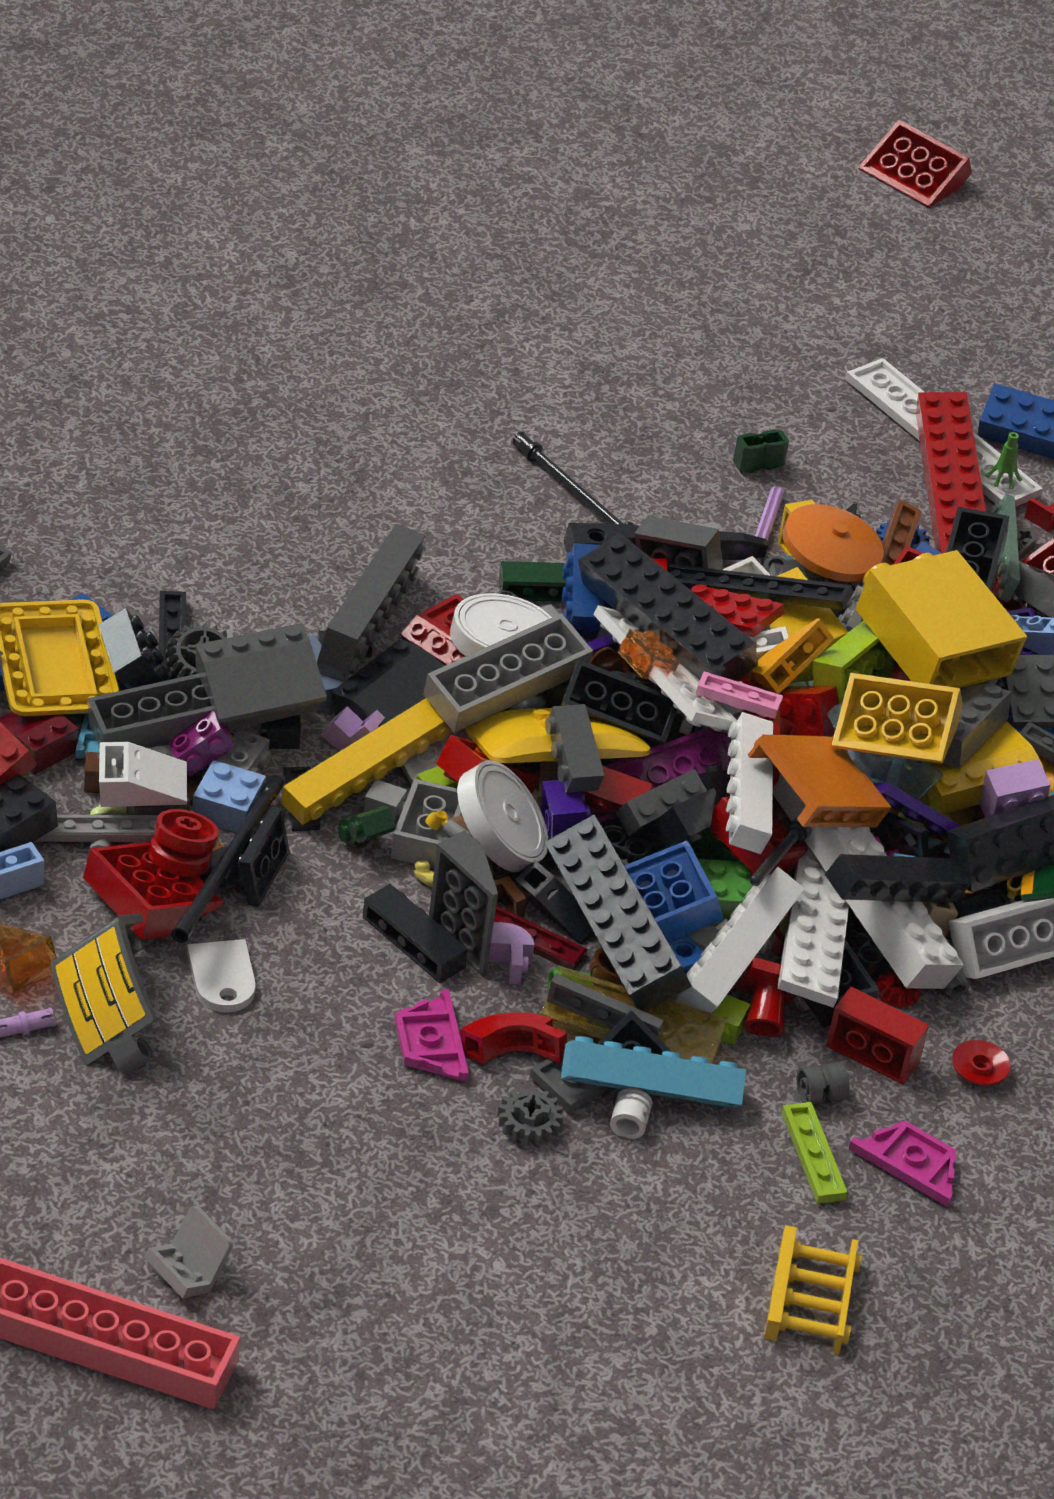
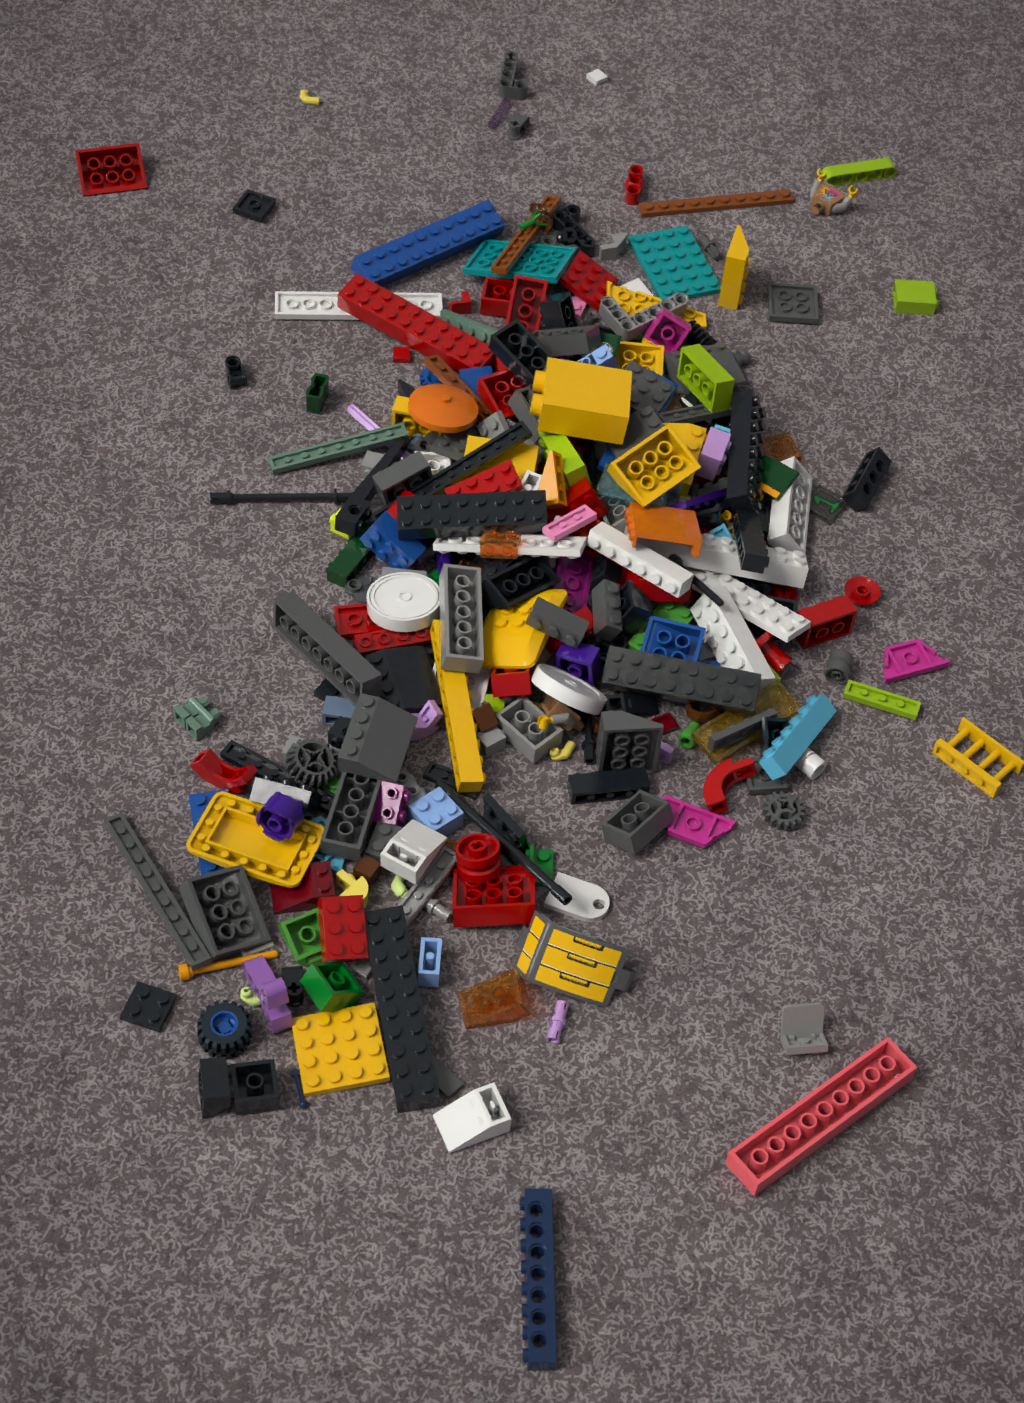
camera: 55 degrees left, 10 degrees up
(61, 777) = (352, 887): none -> light yellow brick
(88, 650) = (280, 816): none -> dark purple brick
(133, 592) = (221, 774): none -> red arch
(194, 555) = (196, 718): none -> sand green hips
(240, 918) = (542, 858): none -> green bracket
(366, 826) = (512, 760): dark green brick -> none
(374, 973) = (637, 822): none -> dark grey brick
(402, 769) = (484, 717): none -> reddish brown panel
(695, 500) = (337, 448): none -> sand green plate
(722, 379) = (235, 372): none -> black piece
(910, 496) = (401, 354): none -> red tile
(999, 291) = (254, 205): none -> black plate
(1008, 461) = (421, 292): bright green piece -> none

